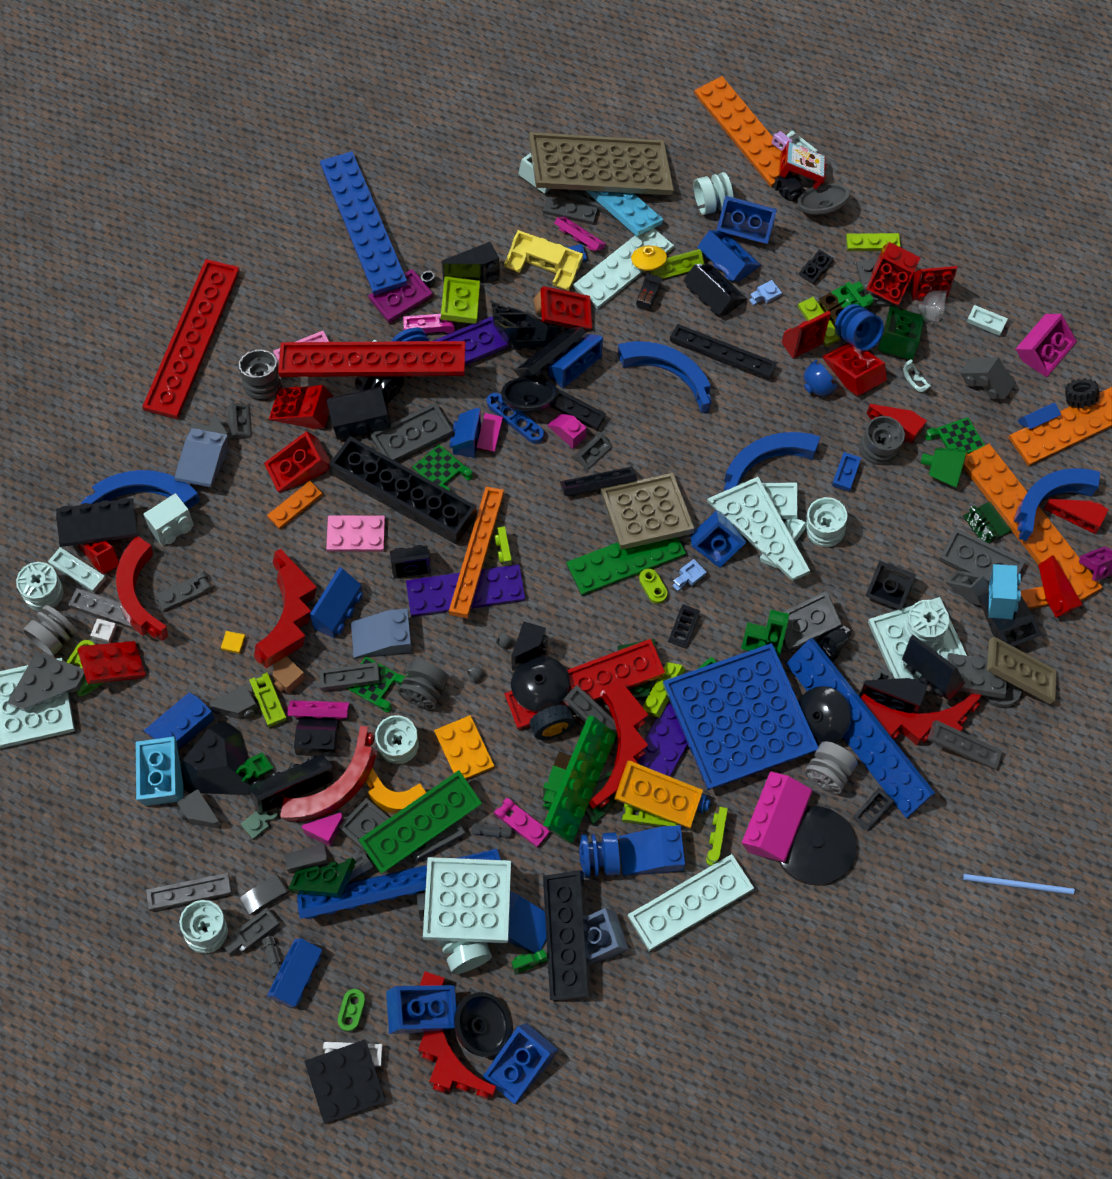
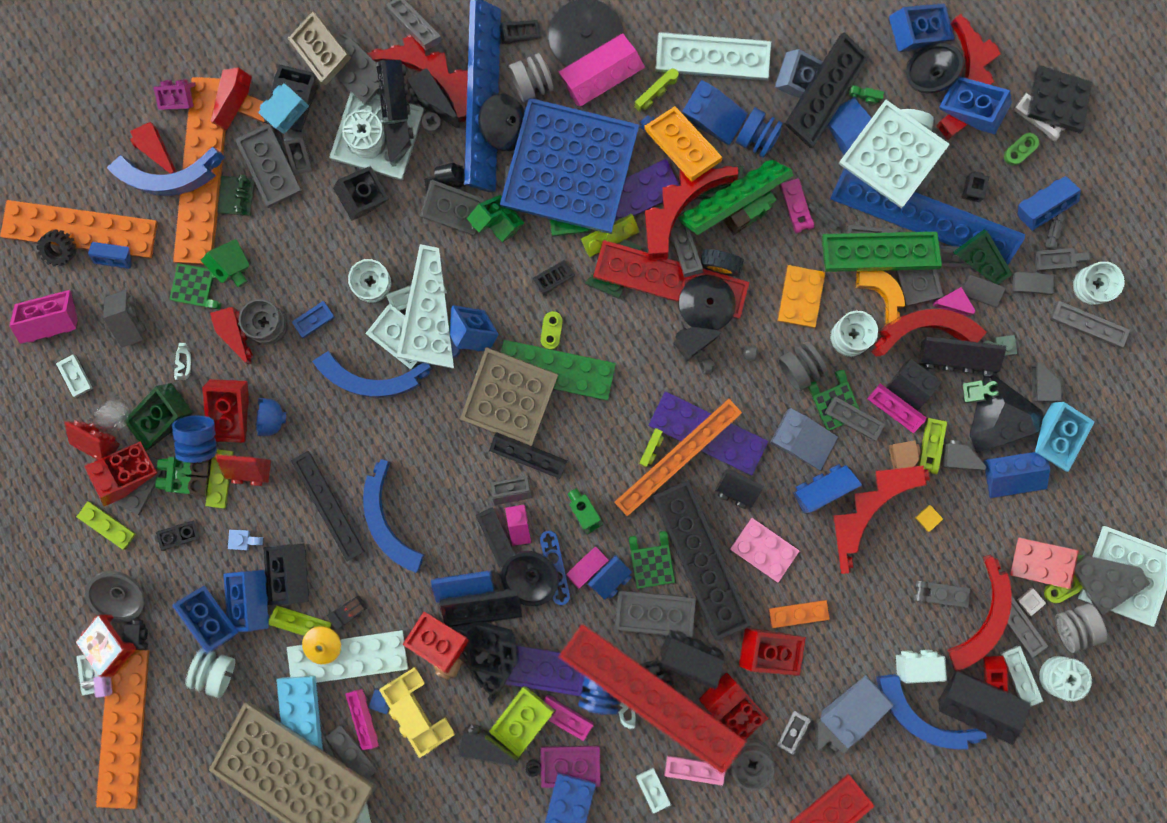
camera: 145 degrees left, 20 degrees up
(325, 317) = (653, 790): none -> light aqua plate
(369, 937) = (980, 181): none -> black brick
(521, 465) = (588, 517): none -> green torso
(689, 573) = (513, 317): light blue plate -> none
(894, 639) = (398, 140): none -> black slope

